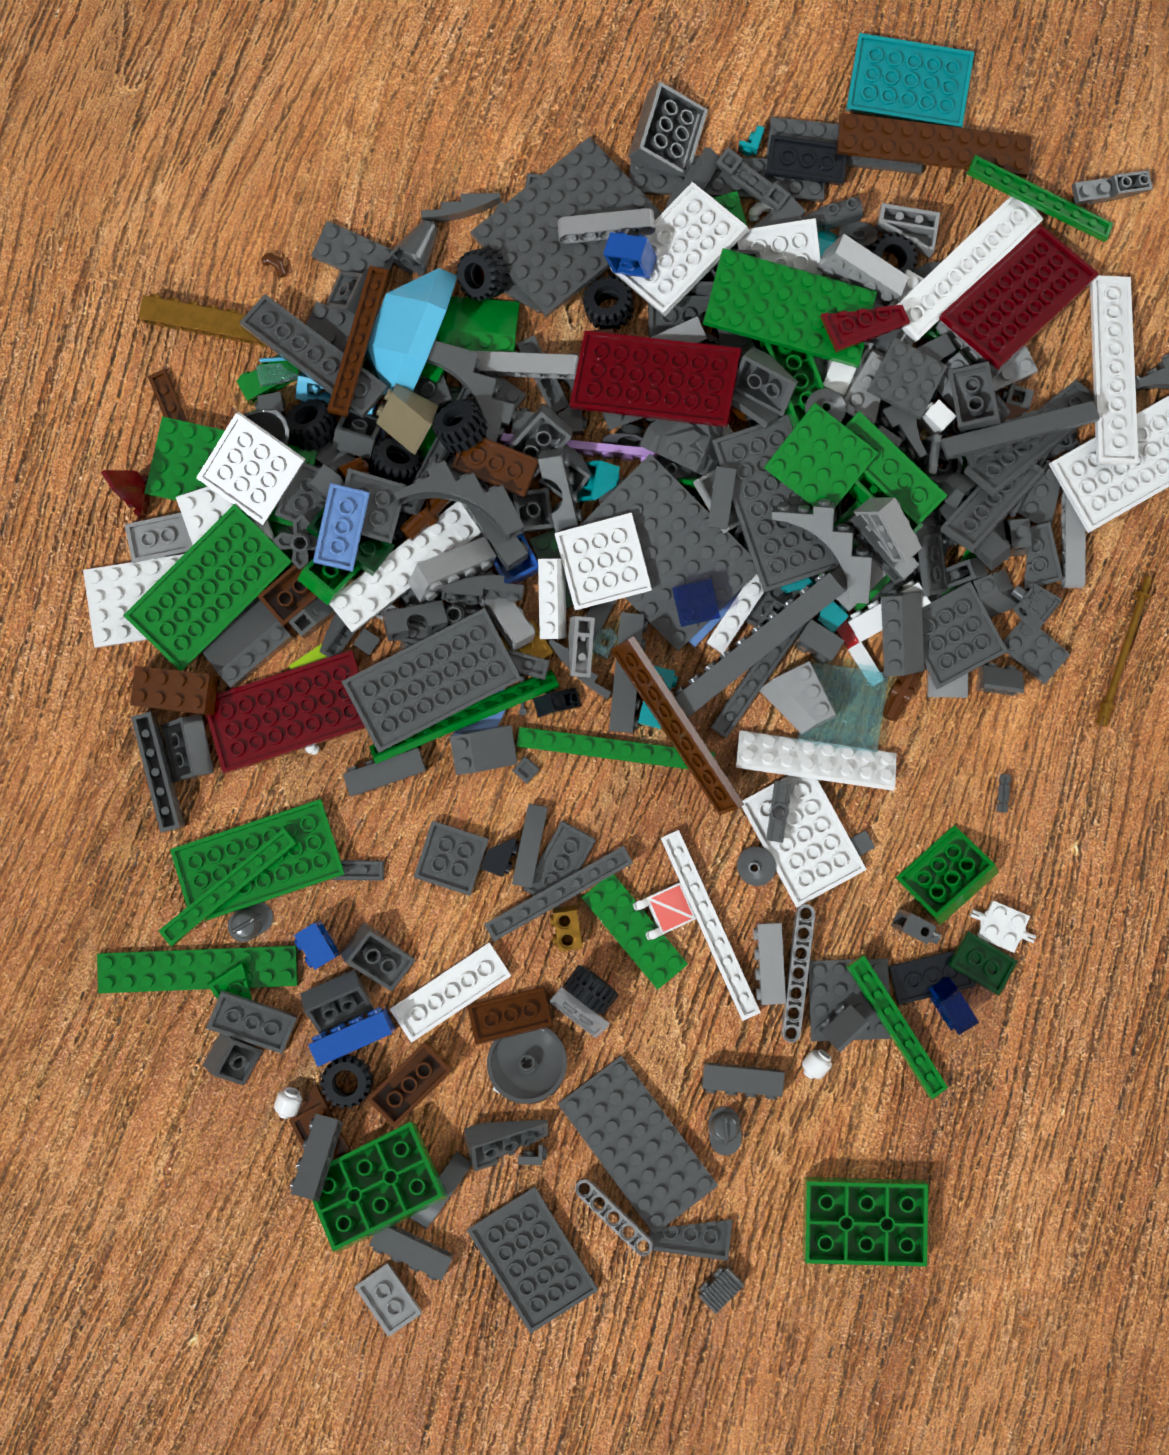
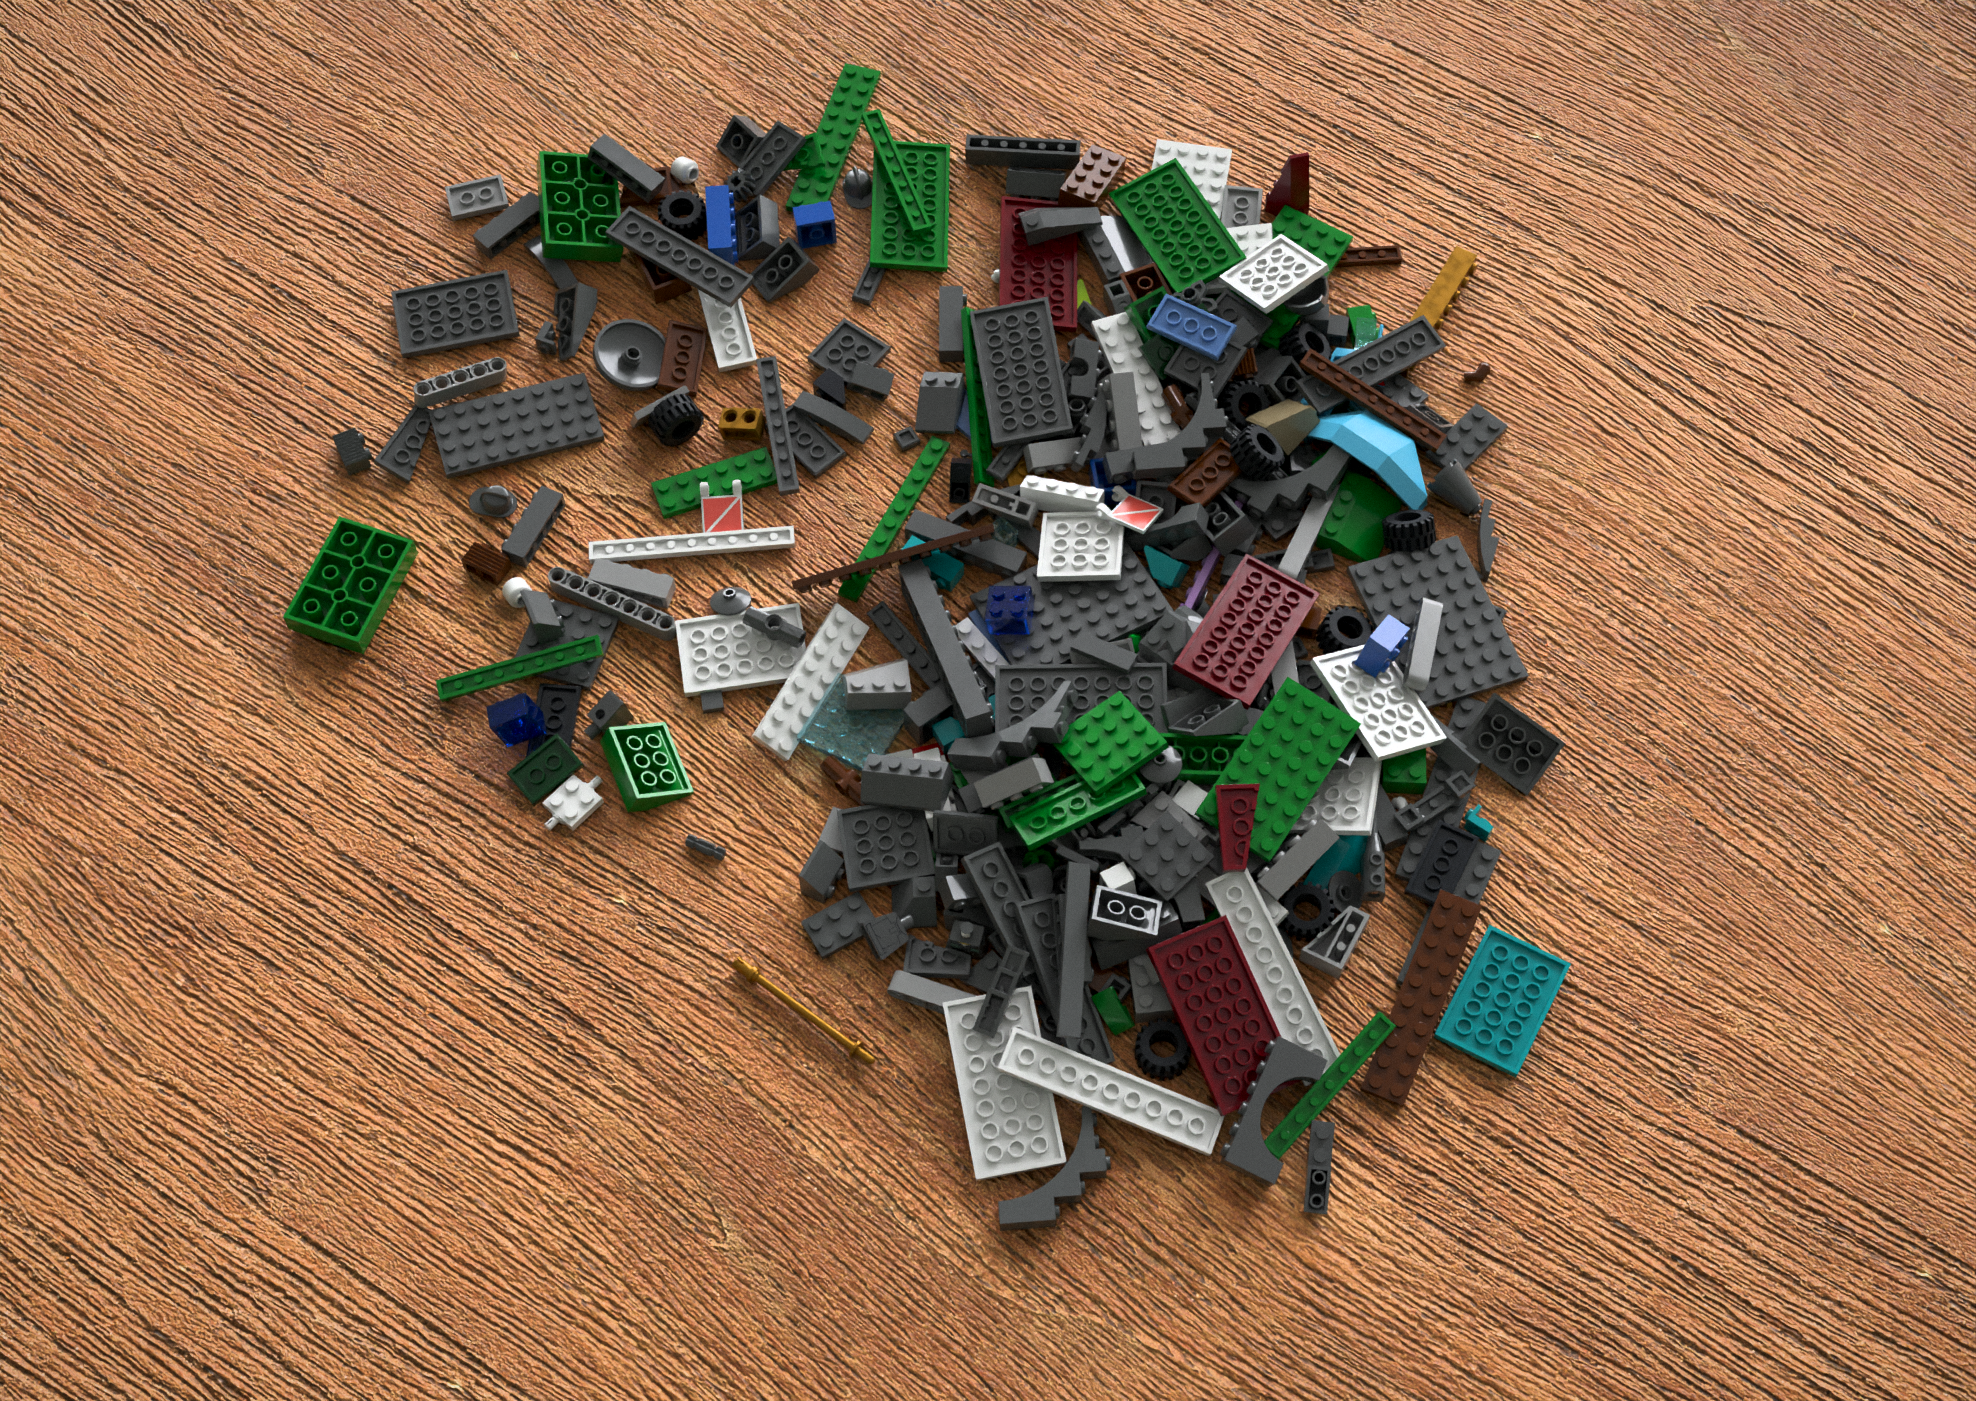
camera: 105 degrees right, 25 degrees down
(241, 711) = (1051, 223): none -> dark grey wedge
(286, 1037) = (740, 184): none -> dark grey gear
(408, 1059) = (680, 256): none -> dark grey plate
(481, 823) = (870, 381): none -> dark grey brick
(555, 523) = (1130, 512): none -> flag
(795, 1106) = (486, 563): none -> reddish brown brick
(1038, 392) = (1112, 1011): none -> green slope
(1045, 236) = (1246, 1147): none -> dark grey arch
(1068, 482) = (1001, 991): none -> dark grey slope
(1071, 337) = (1158, 1065): none -> black tyre

